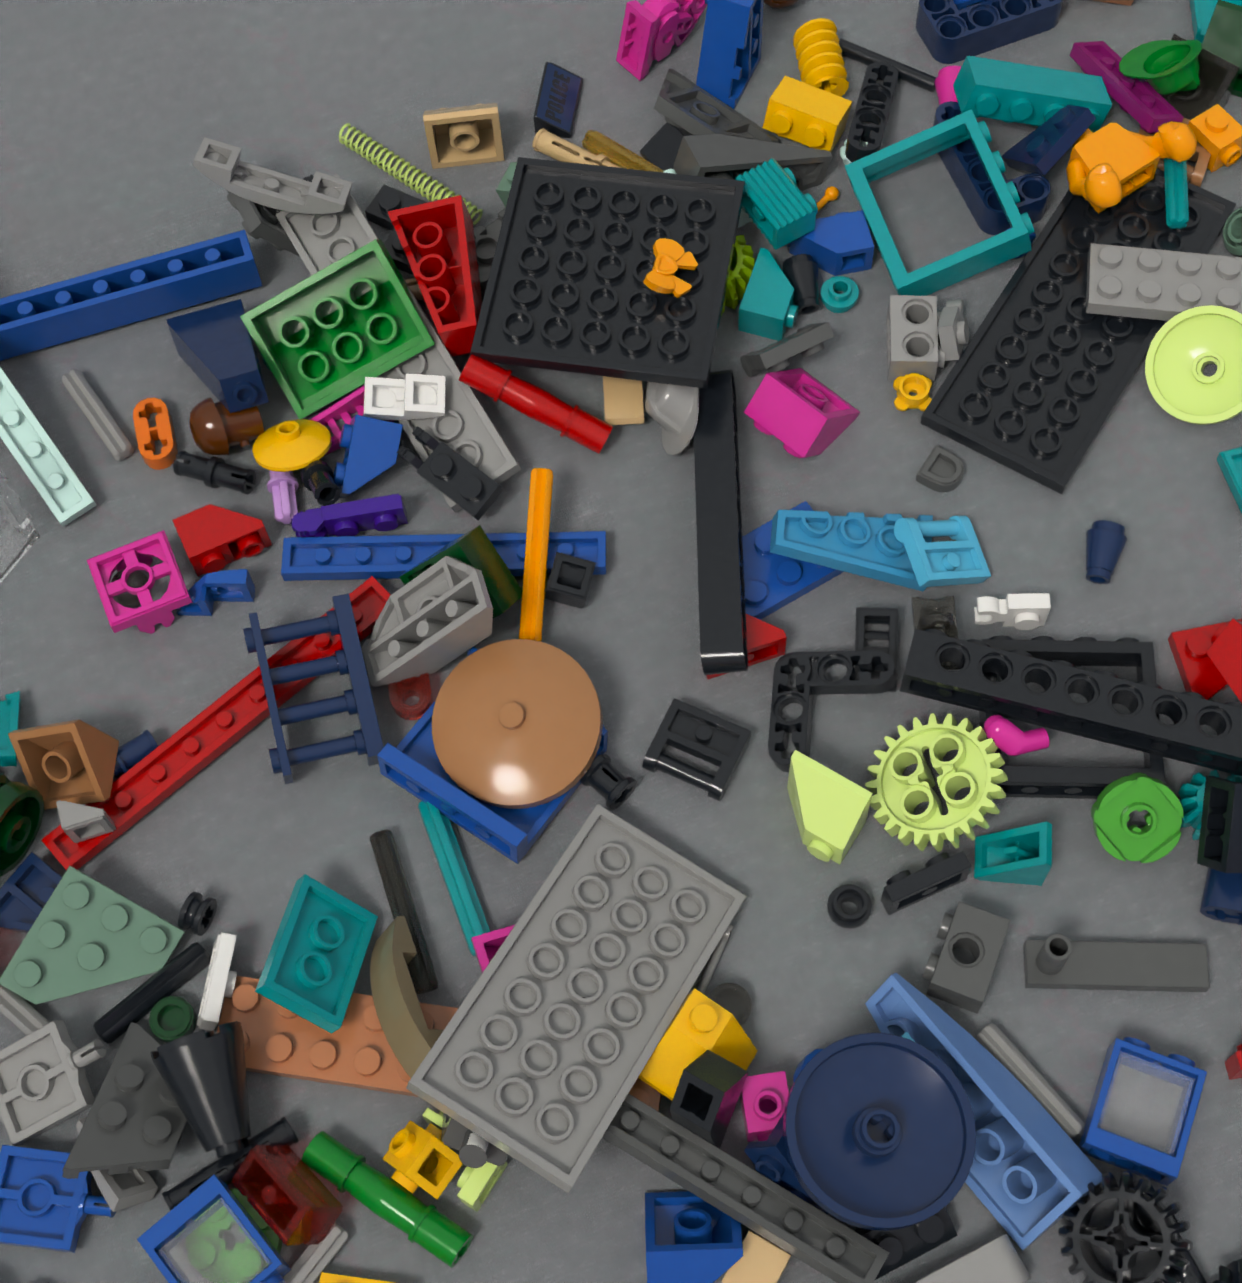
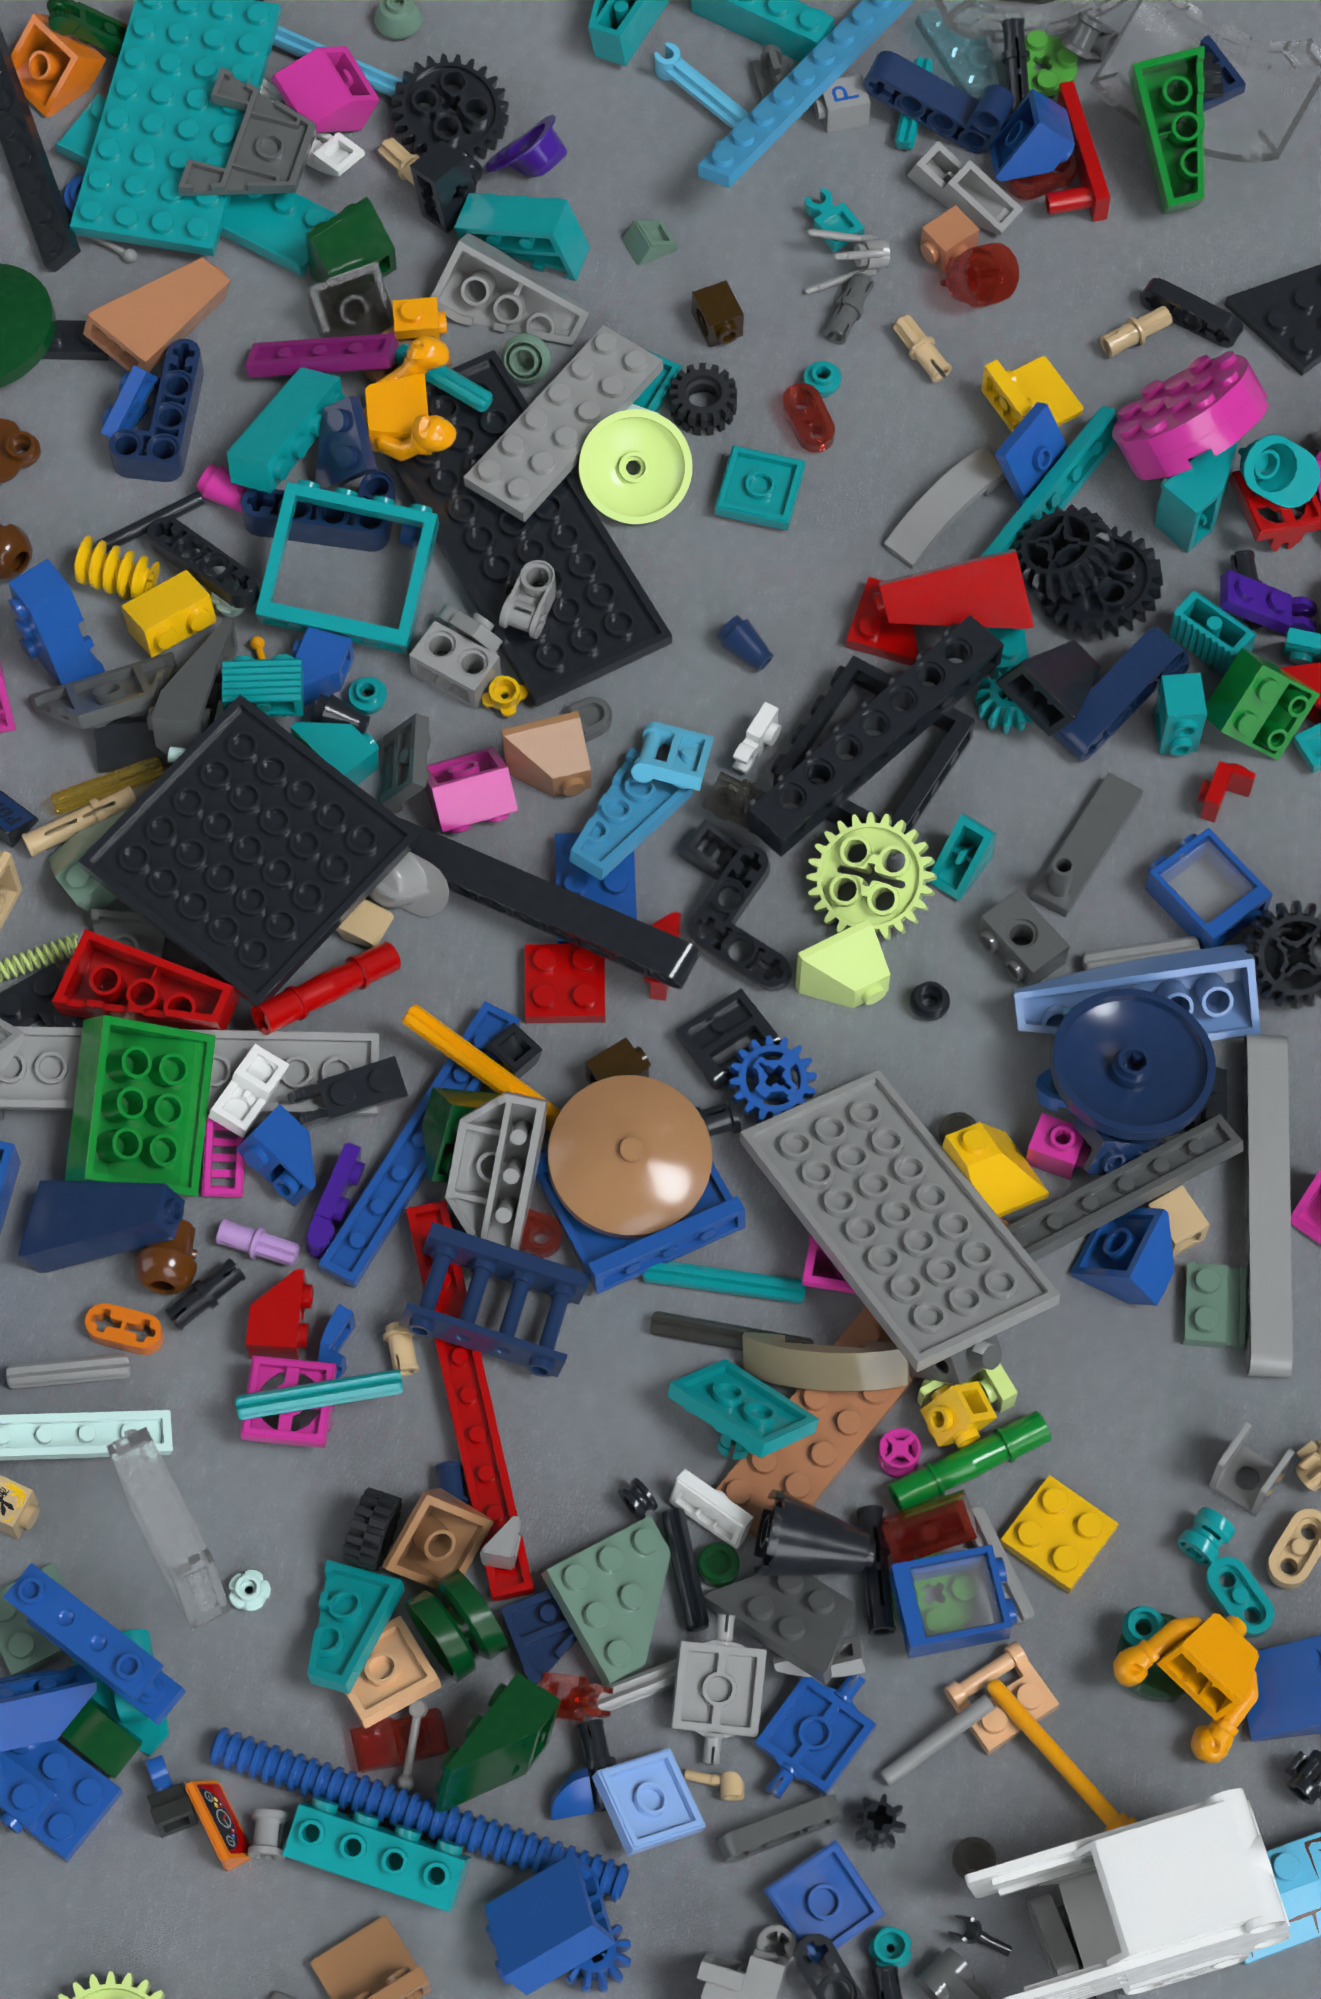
camera: 65 degrees left, 0 degrees up
(52, 702) = (372, 1529): none -> black tyre
(147, 597) = (319, 1394): none -> teal axle
(236, 649) = (401, 1348): none -> tan pin
(291, 445) = (228, 1211): yellow dish -> none
(319, 479) = (276, 1204): black pin -> none
(354, 1120) = (903, 1445): none -> dark pink wheel
(609, 671) = (618, 1061): none -> dark brown brick
(663, 587) = (563, 984): none -> red plate
(668, 259) = (284, 794): light orange piece -> none
(693, 809) = (761, 1069): none -> blue gear
(708, 1096) = (1037, 1170): black slope -> none
(874, 452) = (549, 754): none -> slope
(939, 874) = (942, 950): black plate -> none
(1007, 354) = (529, 605): none -> light grey piece
(1012, 739) = (876, 799): dark pink arm -> none
(1133, 843) = (970, 759): bright green plate -> none
(1165, 65) = (330, 313): green piece -> none

